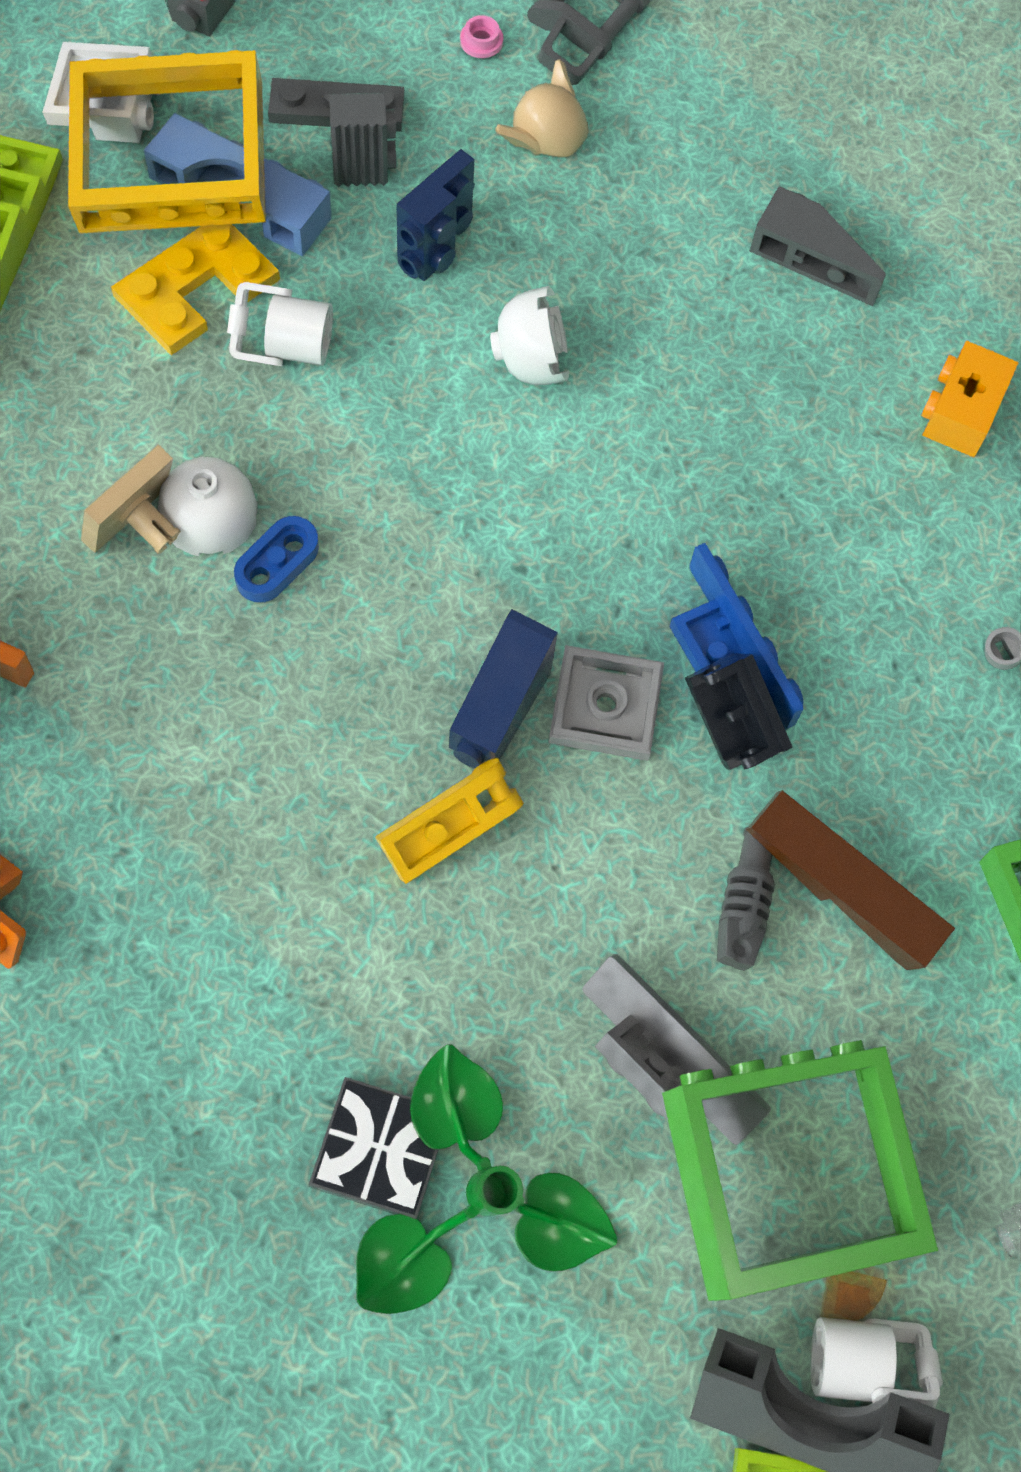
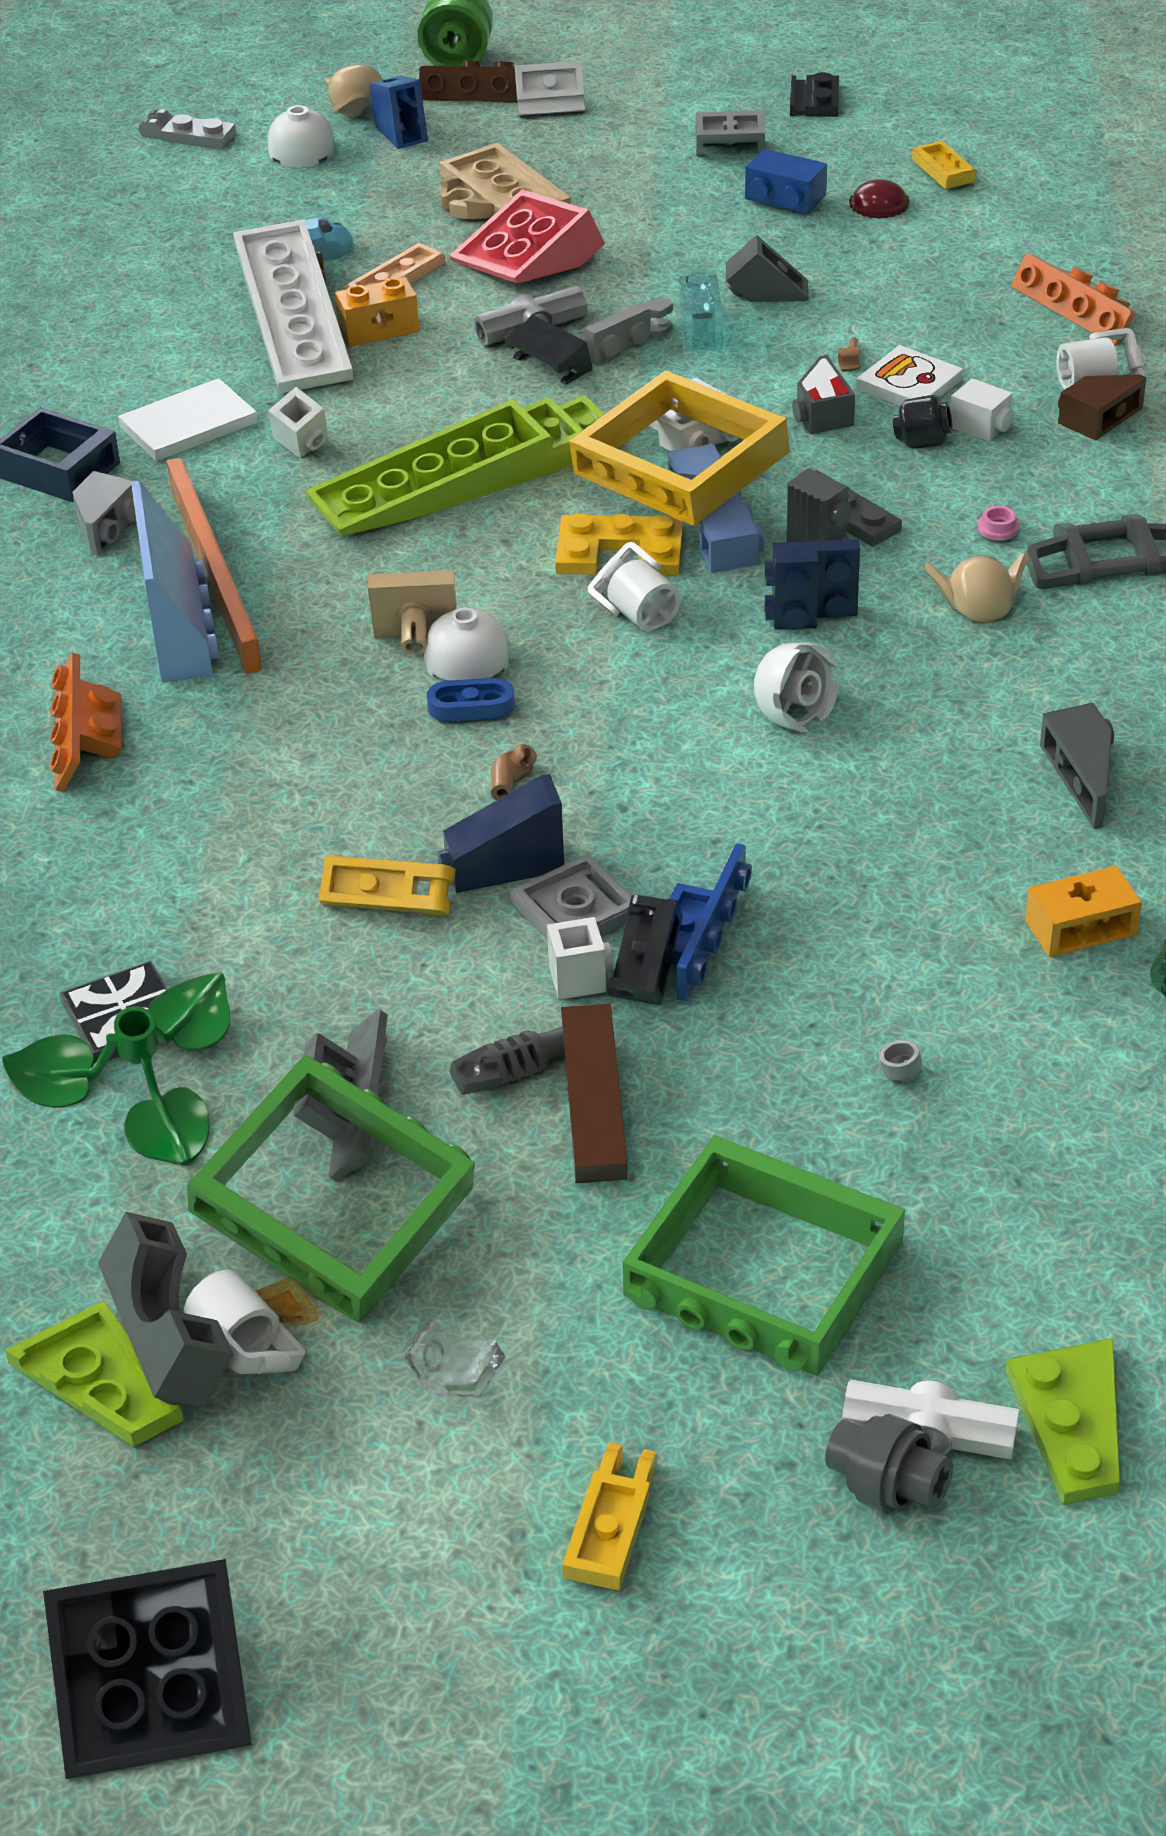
camera: 55 degrees right, 25 degrees down
(392, 607) = (510, 768): none -> medium nougat arm
(696, 764) = (578, 958): none -> white brick

